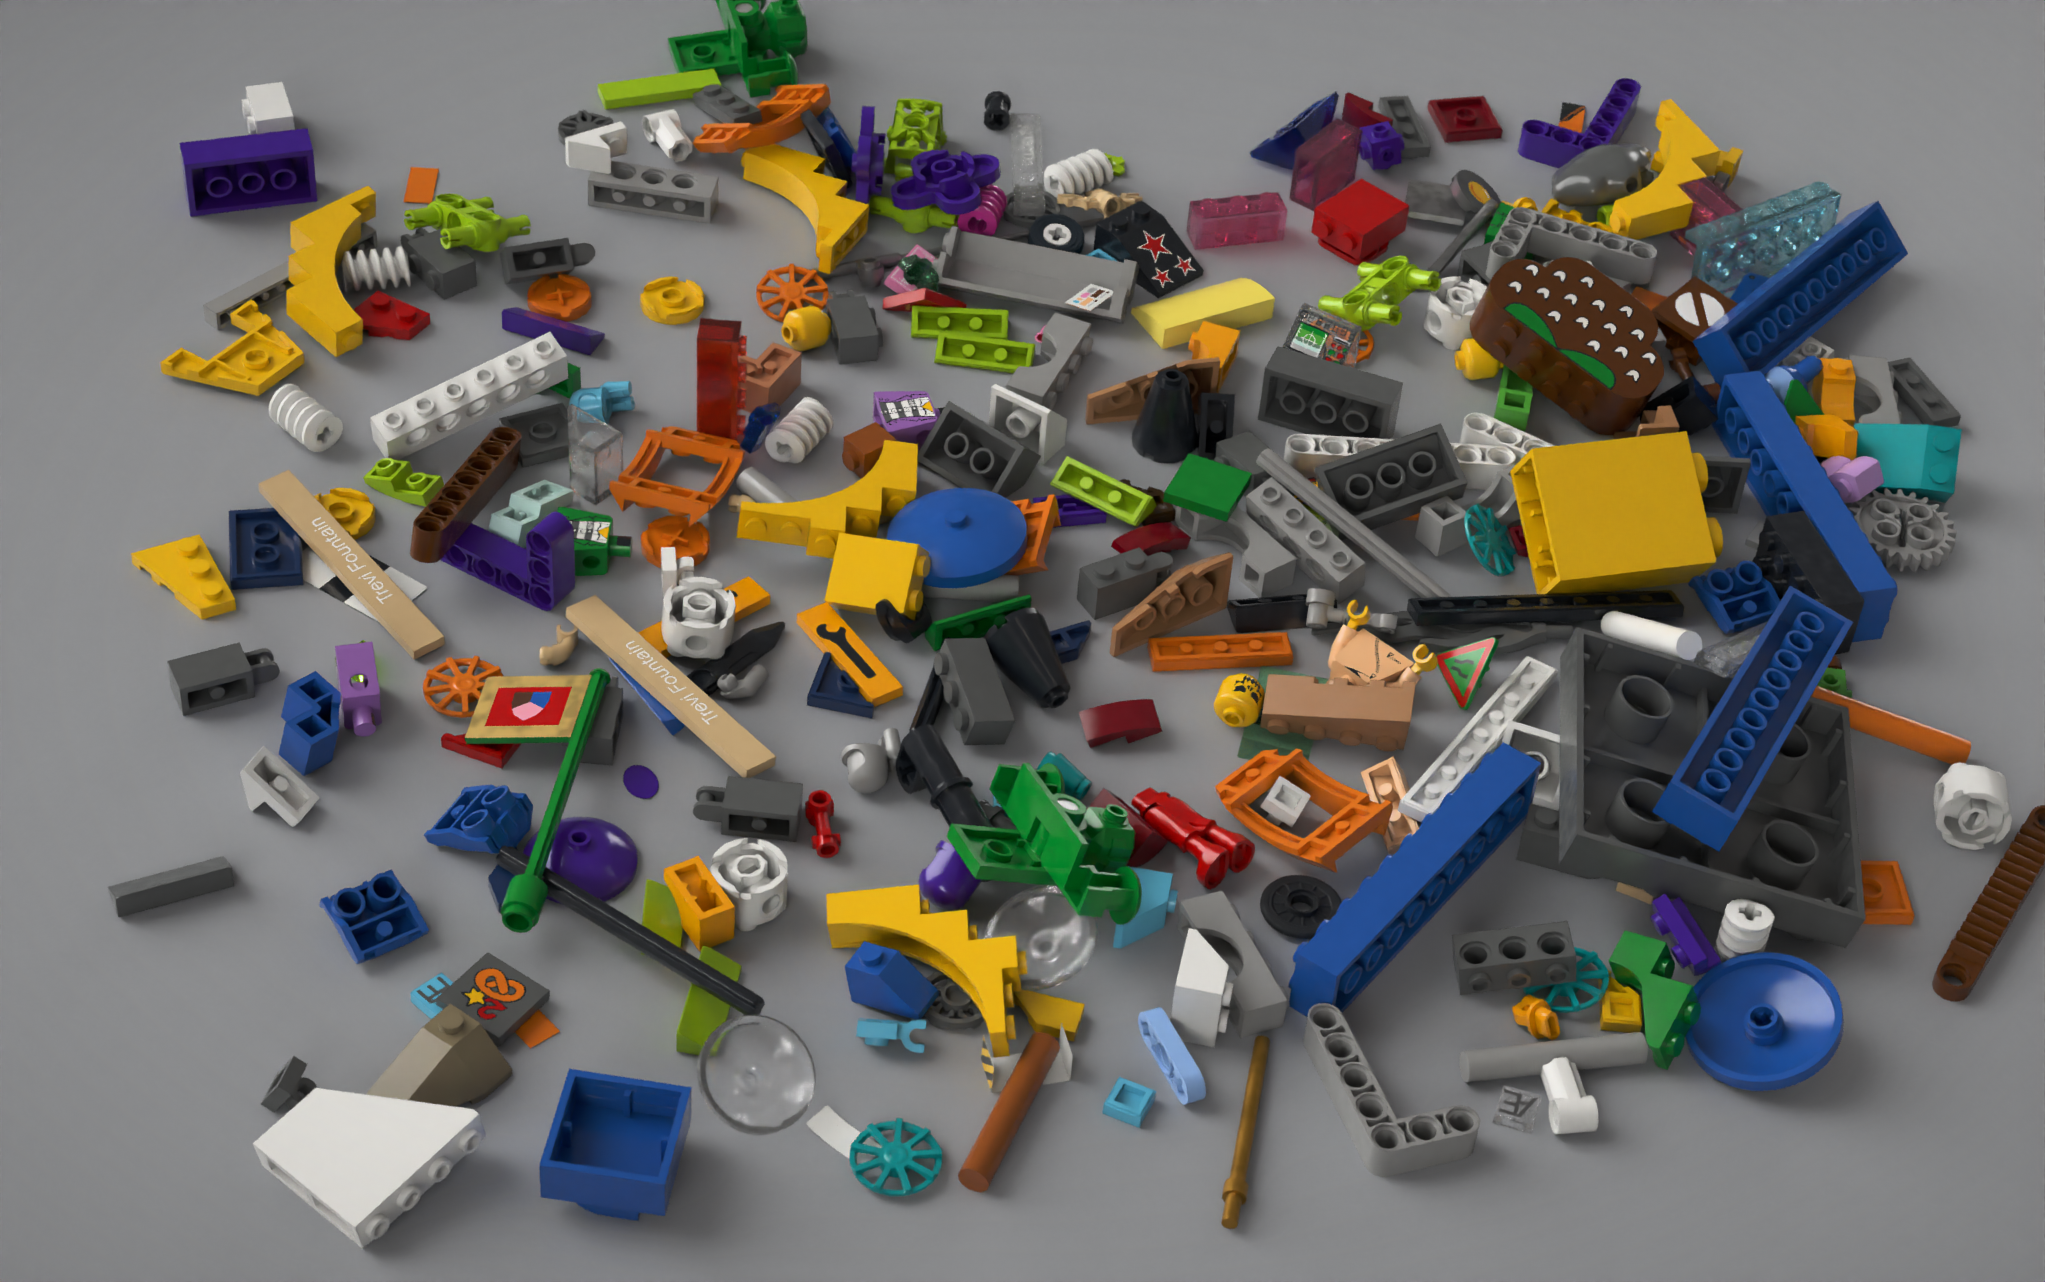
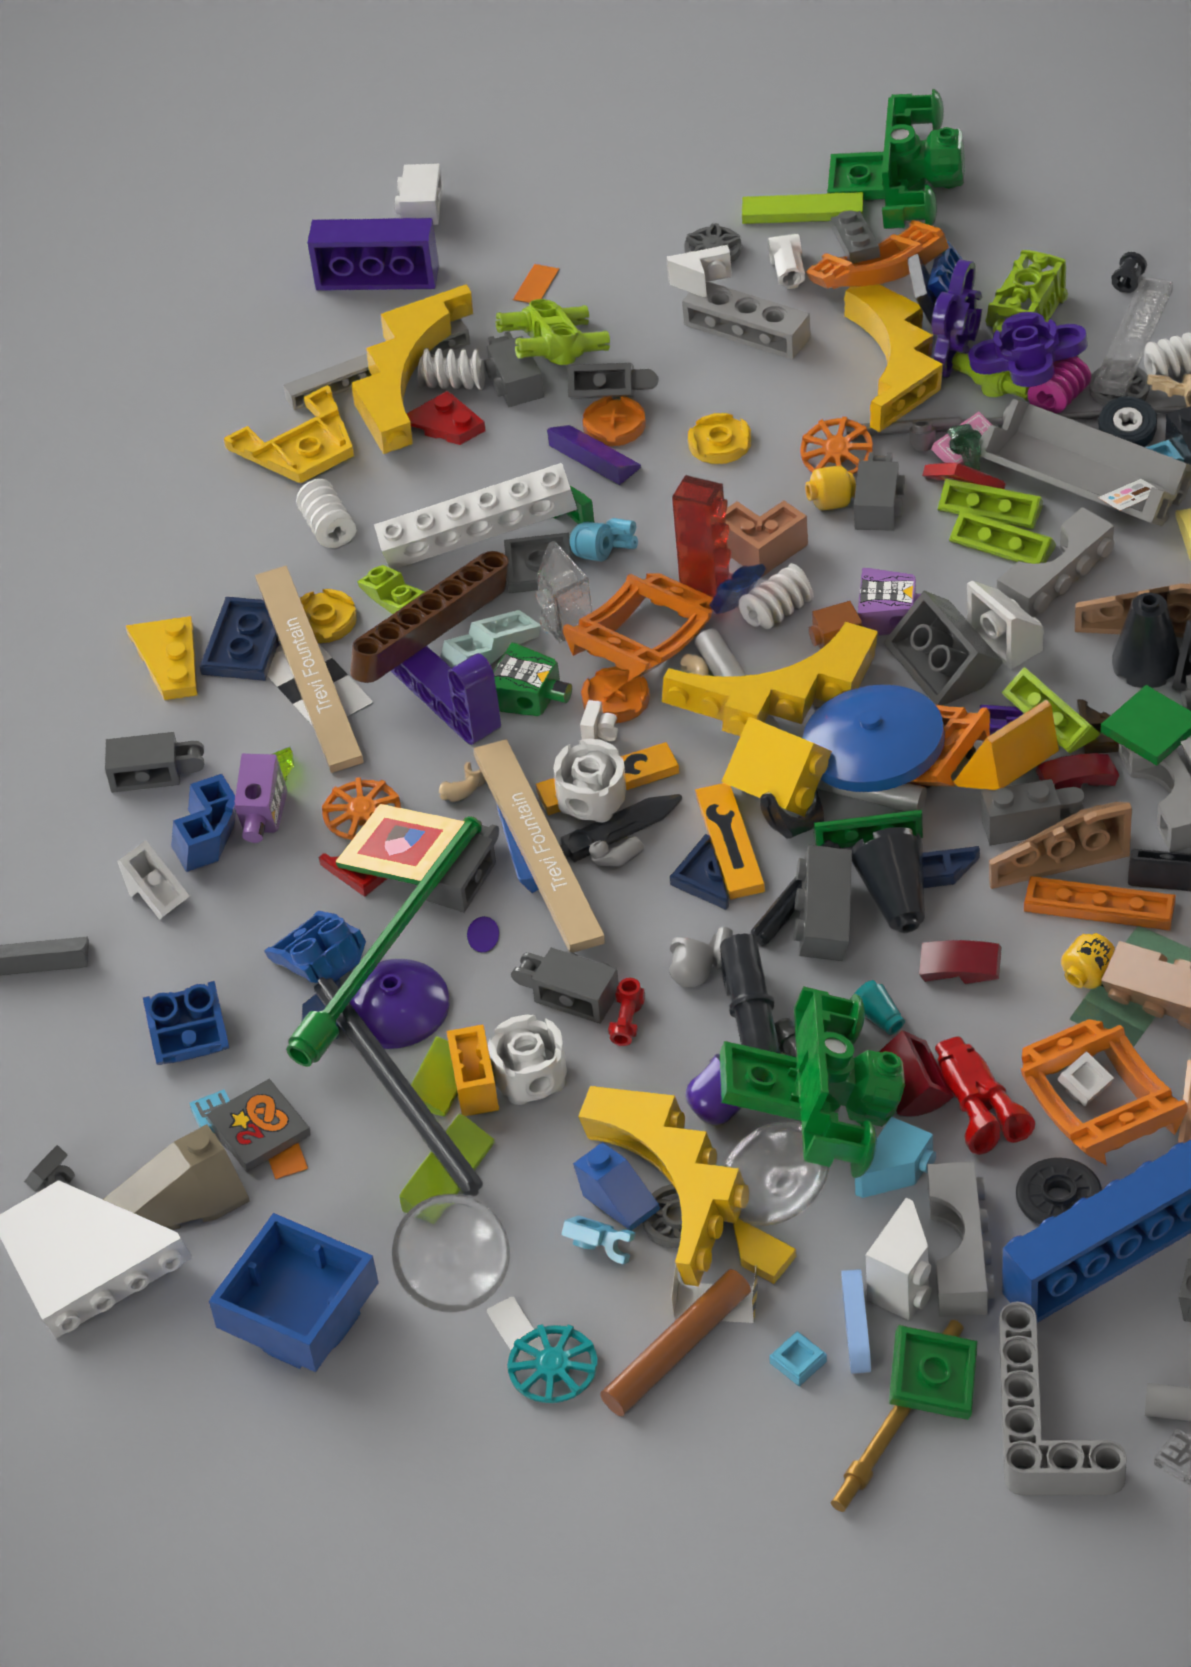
camera: 30 degrees right, 5 degrees up
(1092, 532) = (1012, 750): none -> light orange slope
(1265, 1084) = (933, 1372): none -> green tile

